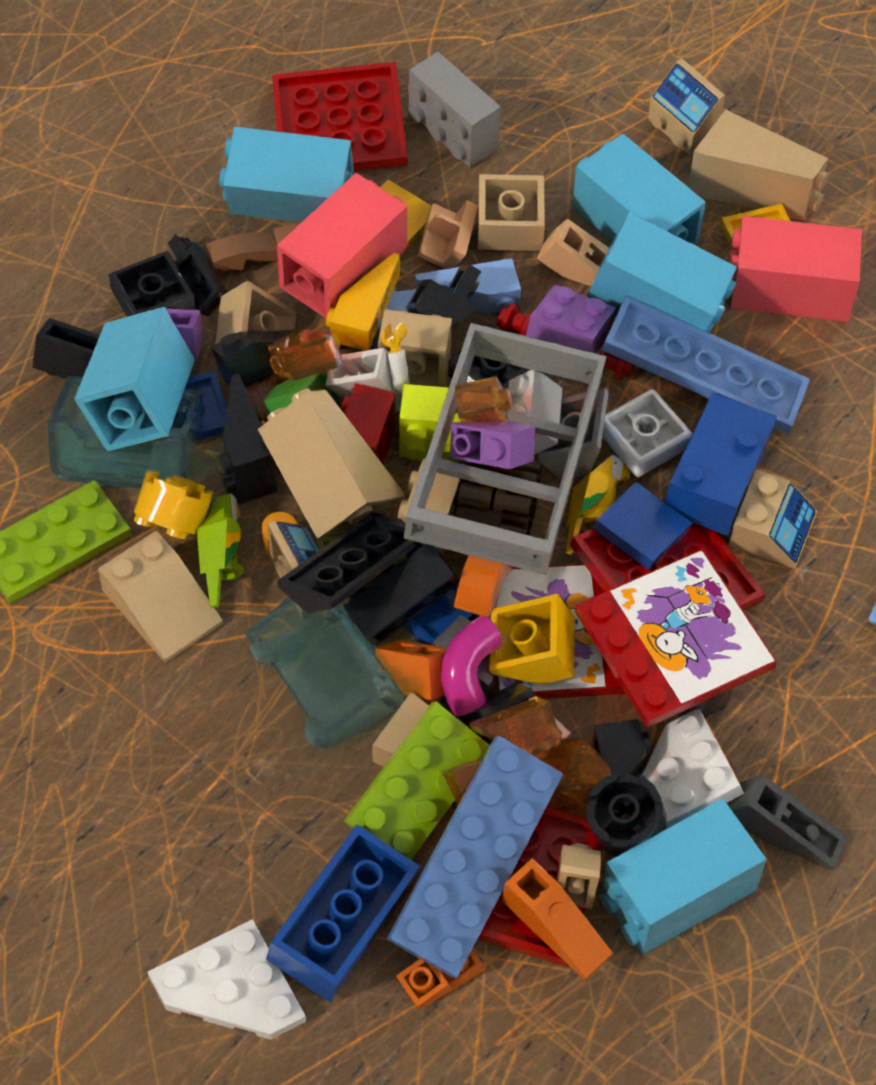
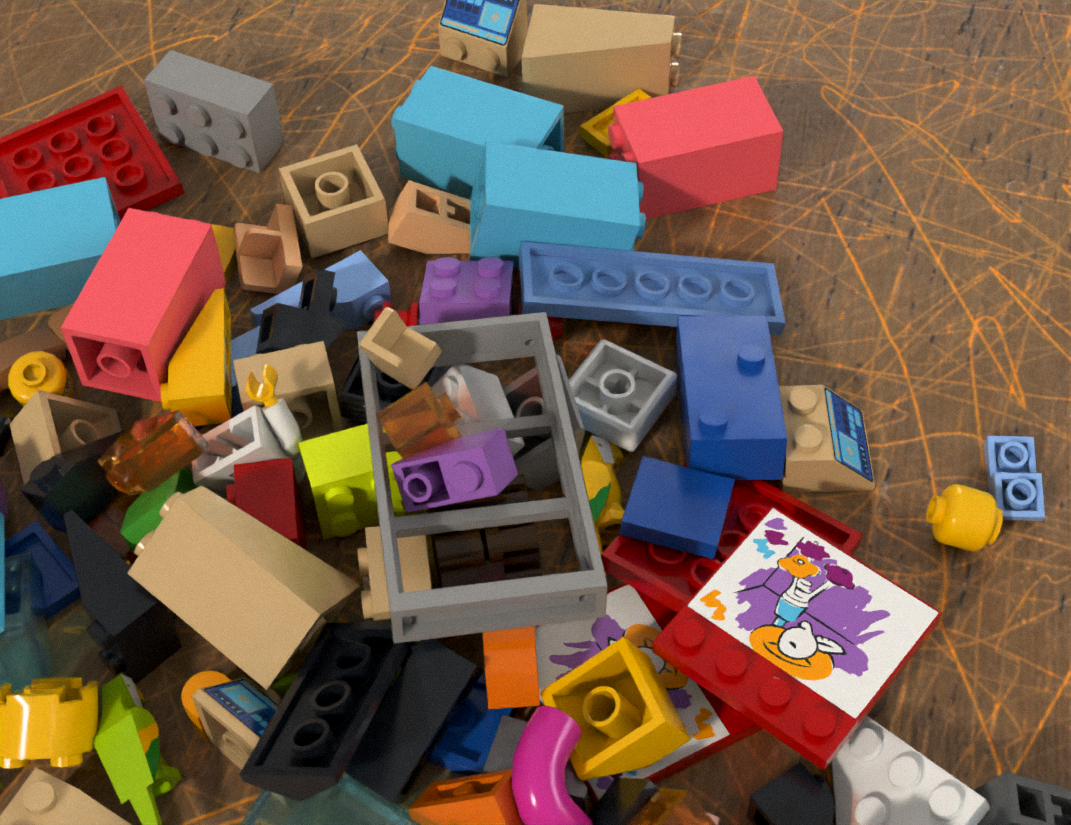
camera: 20 degrees left, 5 degrees down
(254, 268) = (39, 372): none -> yellow head
(491, 346) = (399, 349): none -> tan panel
(842, 611) = (964, 518): none -> yellow head

